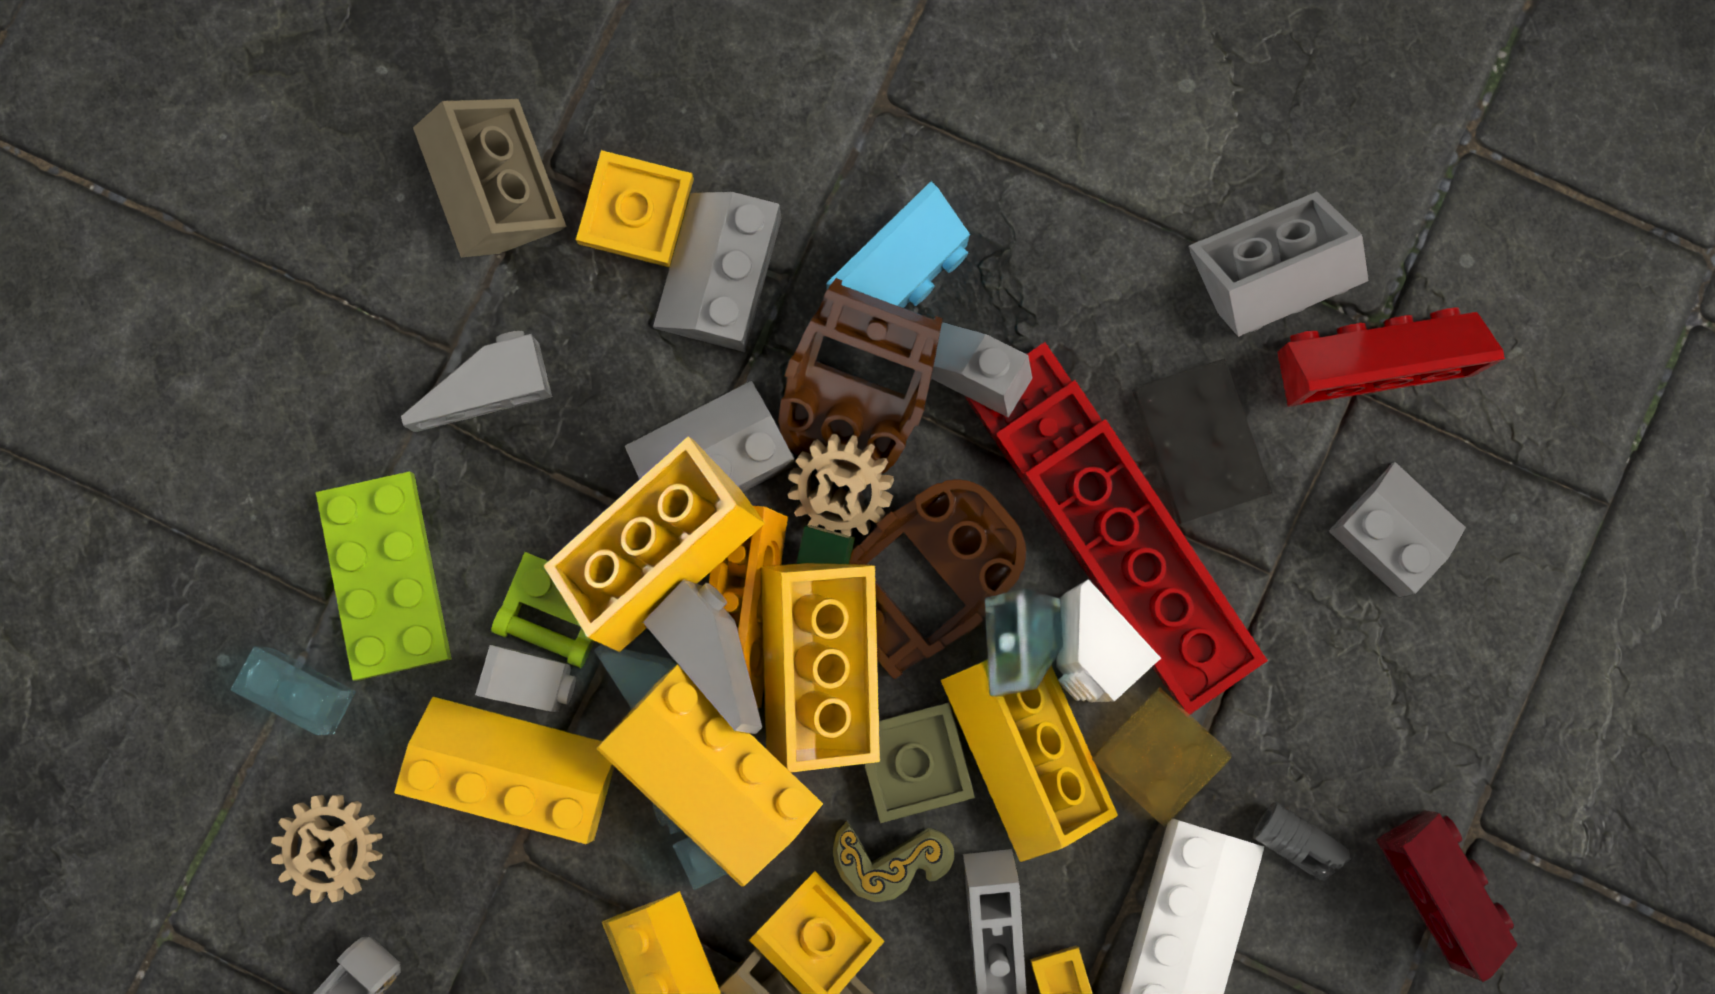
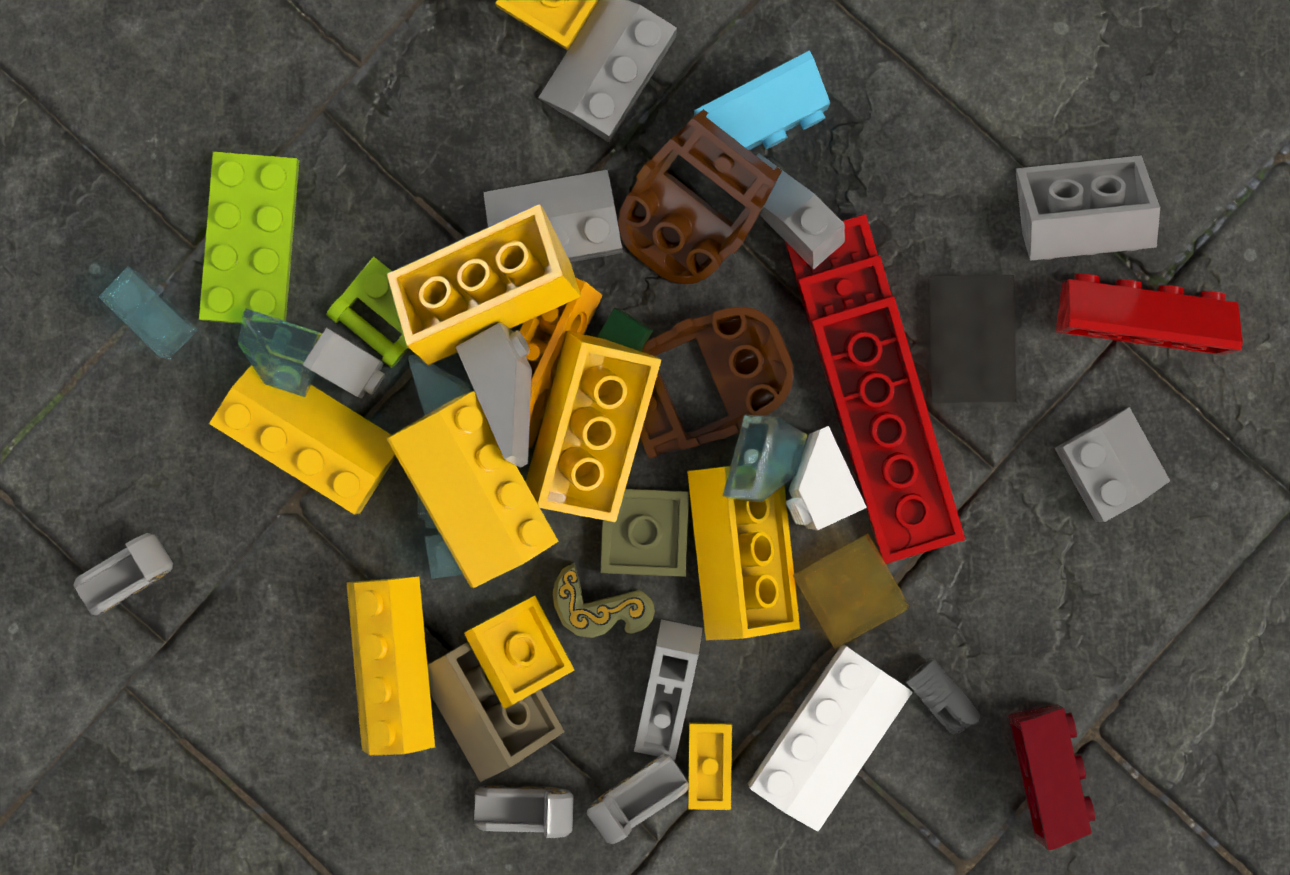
camera: 20 degrees right, 5 degrees up
(340, 863) = (145, 469): tan gear -> none
(446, 688) = (278, 351): none -> clear light blue slope
(489, 381) = (387, 102): light grey slope -> none
(826, 501) = (662, 268): tan gear -> none

